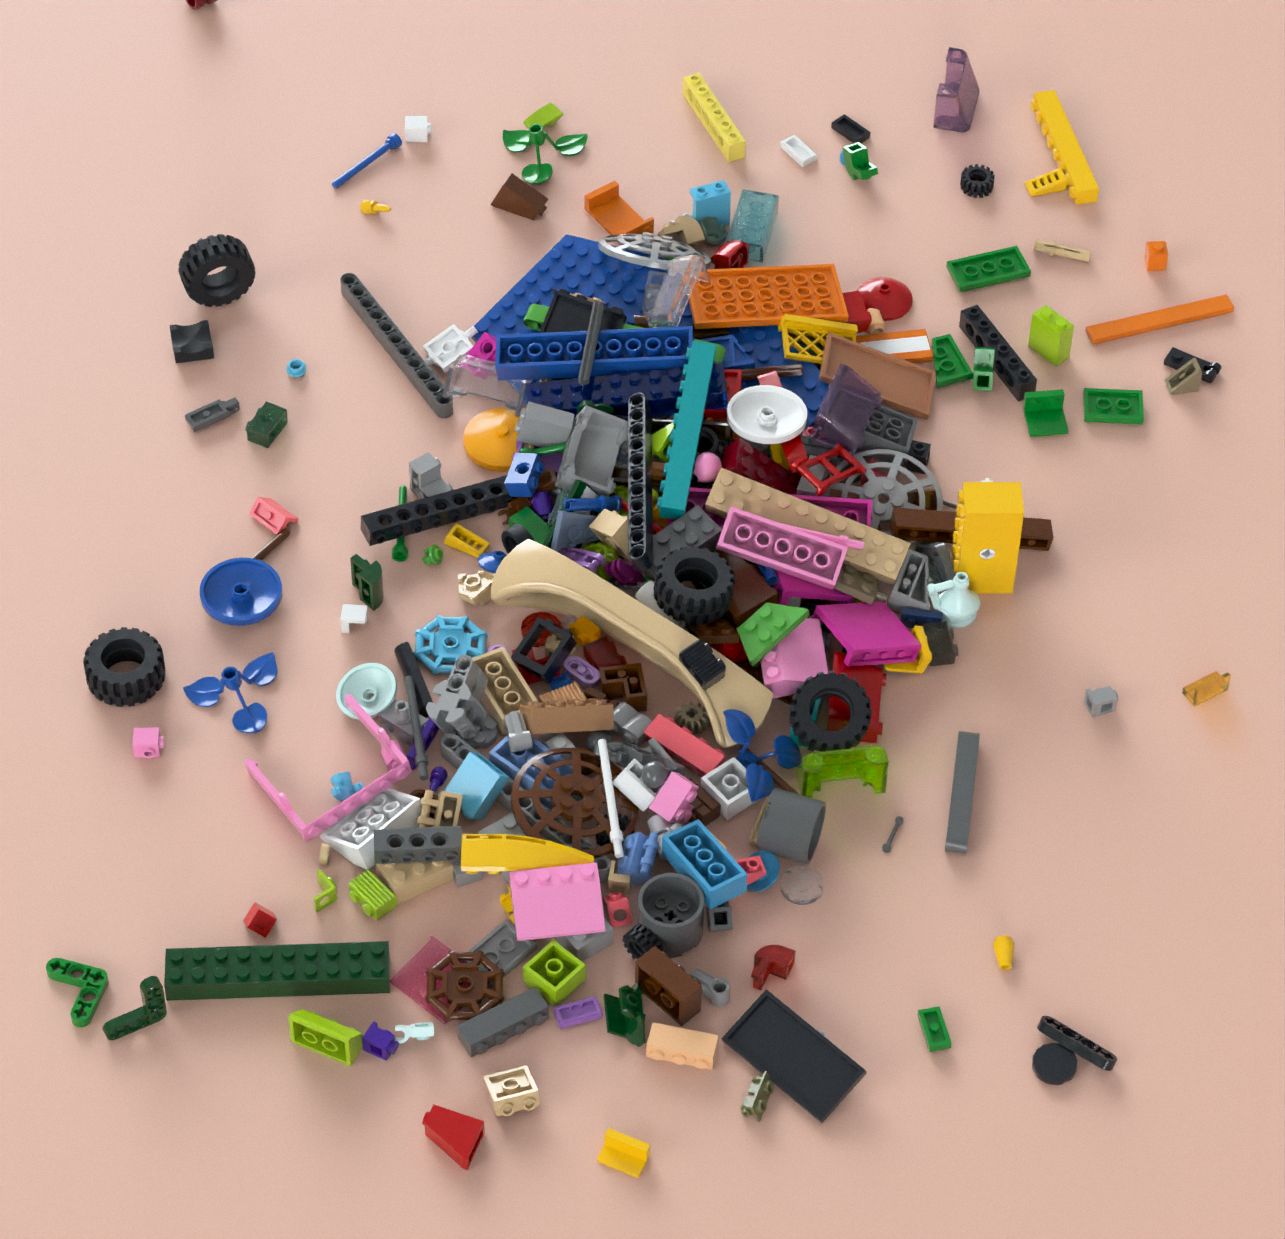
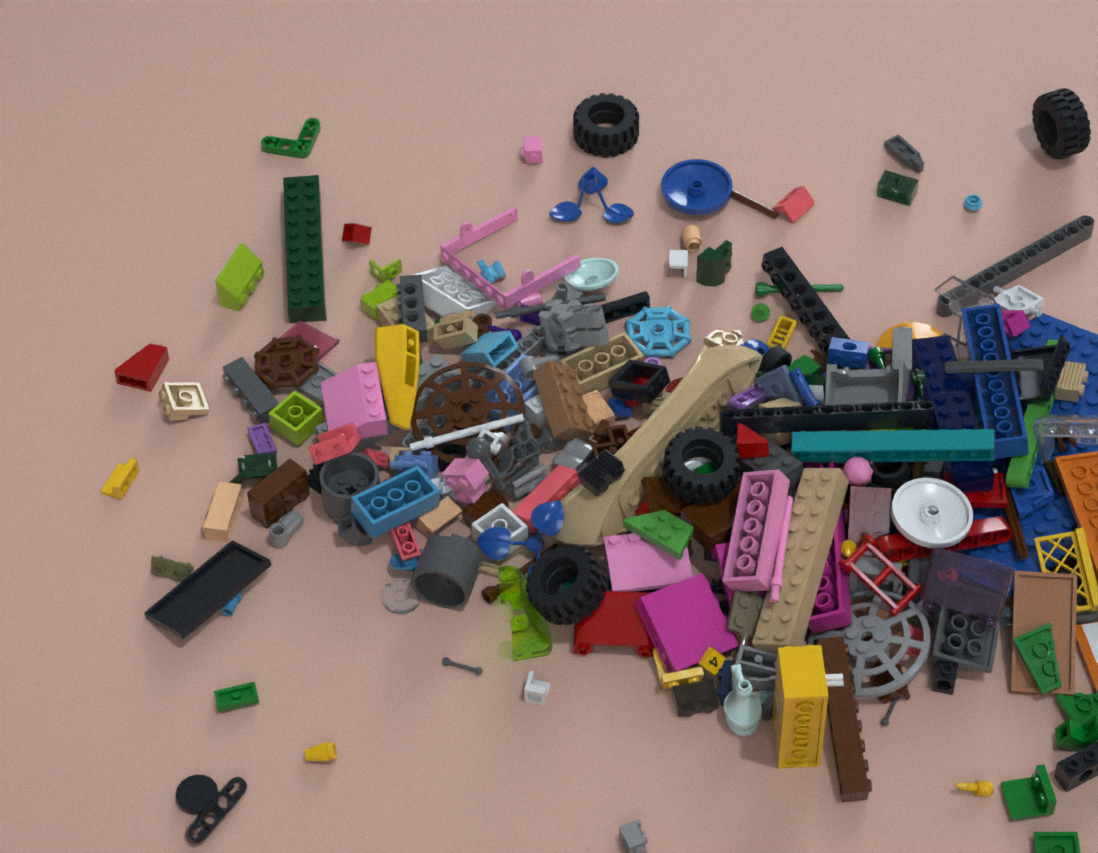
camera: 90 degrees right, 0 degrees up
(142, 1016) = (263, 168): dark green beam -> none
(191, 342) = (987, 130): black brick -> none
(315, 604) = (691, 238): none -> light nougat brick
(324, 854) = (422, 265): tan tile -> none
(379, 1042) = (235, 315): dark purple brick -> none
(421, 1031) = (245, 339): light aqua plate -> none
(426, 477) = (844, 295): light grey brick -> none
(583, 671) = (633, 419): lavender plate -> none
(626, 912) = (335, 443): none -> coral panel
(670, 540) = (750, 443): none -> red slope
(772, 960) = (309, 572): clear red brick -> none
(796, 489) = (848, 547): none -> yellow bar
(902, 383) = (1039, 656): none -> green wing
(905, 619) = (712, 660): none -> yellow tile
(926, 772) = (535, 690): none -> white panel
(962, 792) = (510, 718): dark grey beam -> none
(1034, 449) = (983, 788): none -> yellow bar

